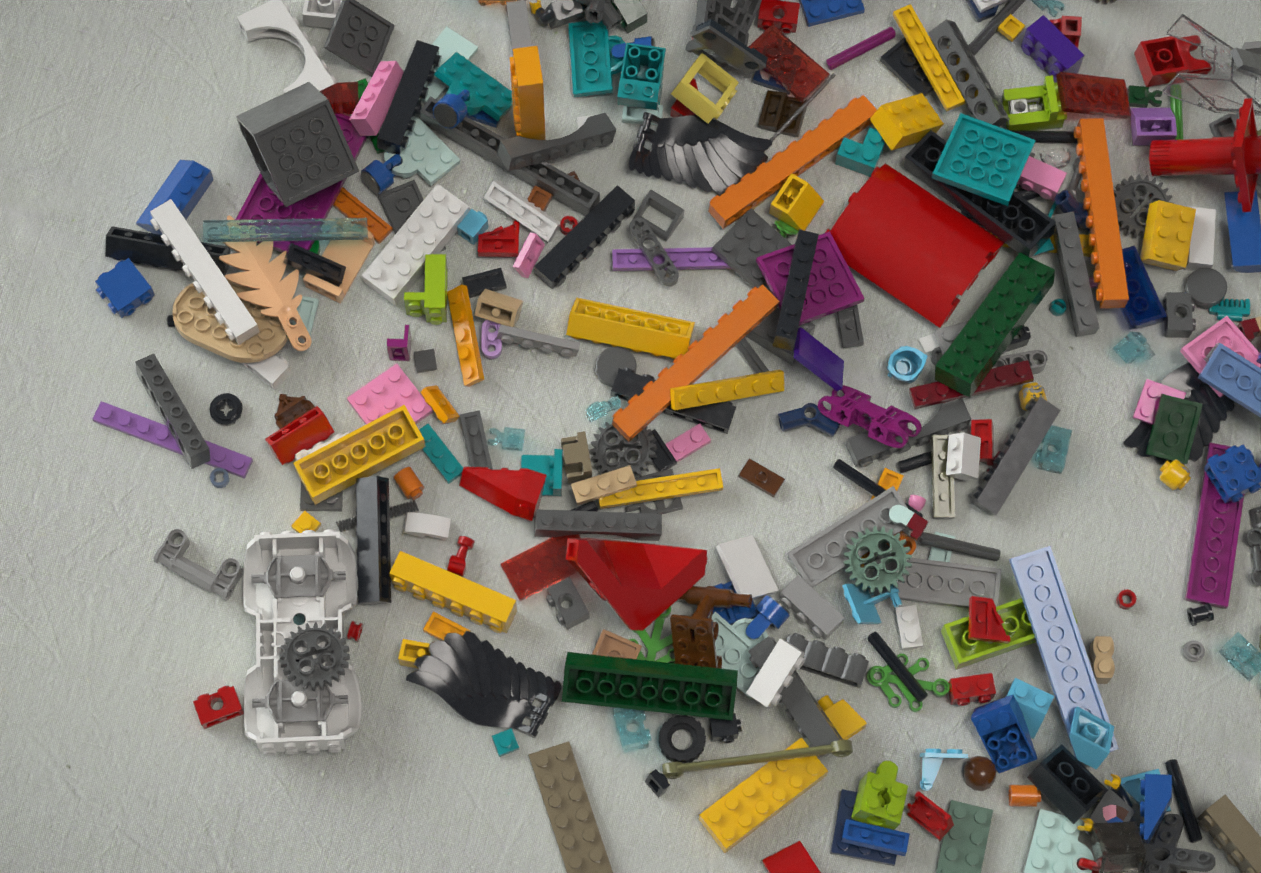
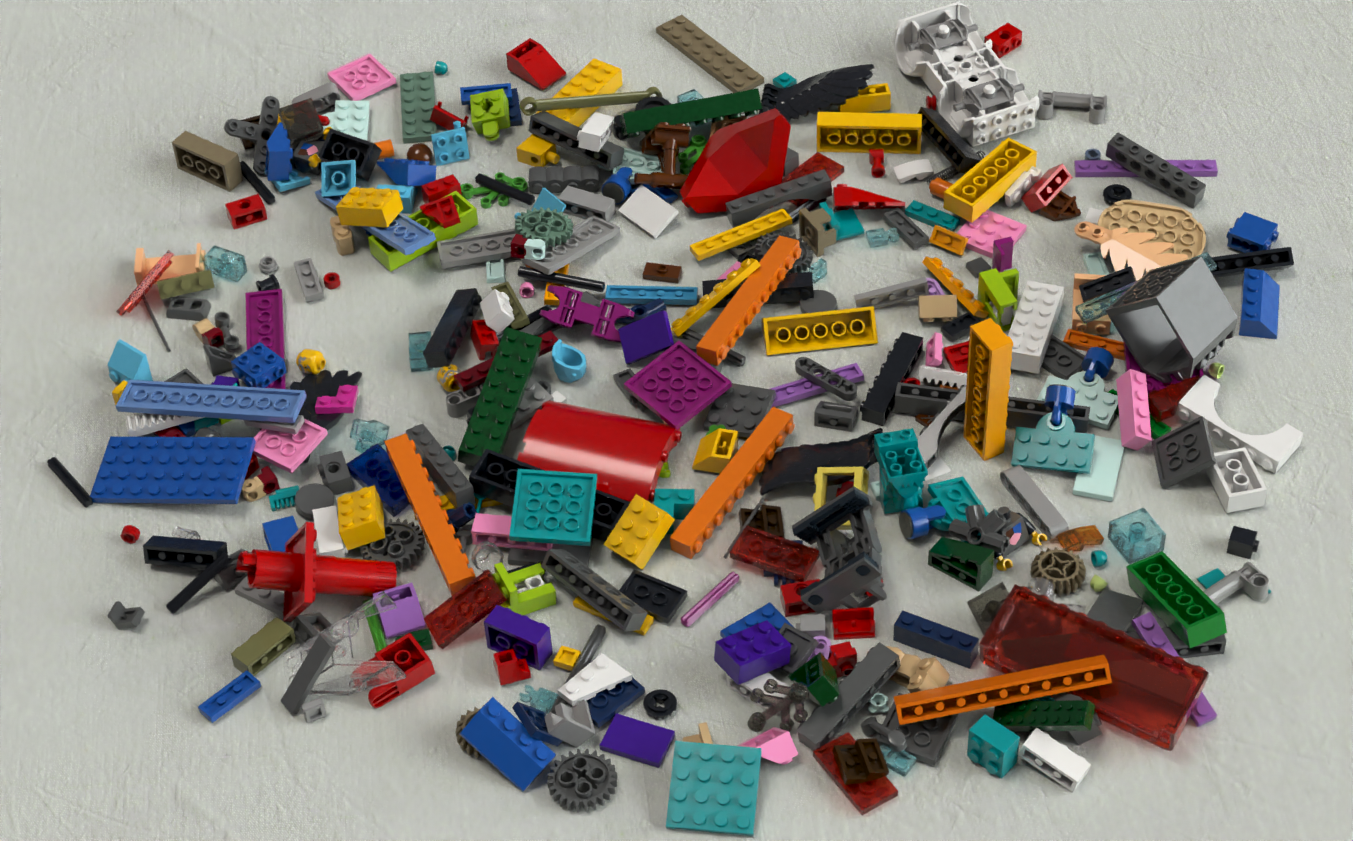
camera: 165 degrees right, 25 degrees down
(204, 272) = (1191, 237): white brick -> none
(310, 639) = (946, 50): dark grey gear -> none
(408, 97) = (1107, 418): black brick -> none
(603, 485) = (784, 218): tan plate -> none
(657, 782) = (662, 85): black plate -> none
(785, 444) = (647, 294): none -> dark azure plate
(795, 290) = (685, 357): black brick -> none
(908, 627) = (503, 217): white plate -> none
(928, 57) = (656, 607): yellow plate -> none
(960, 546) = (480, 270): dark grey axle -> none
(1071, 643) = (369, 207): none -> yellow brick
(1152, 607) = (308, 279): none -> light grey plate
(1174, 428) = (320, 380): dark green plate -> none
(1215, 739) = (246, 211): none -> red brick

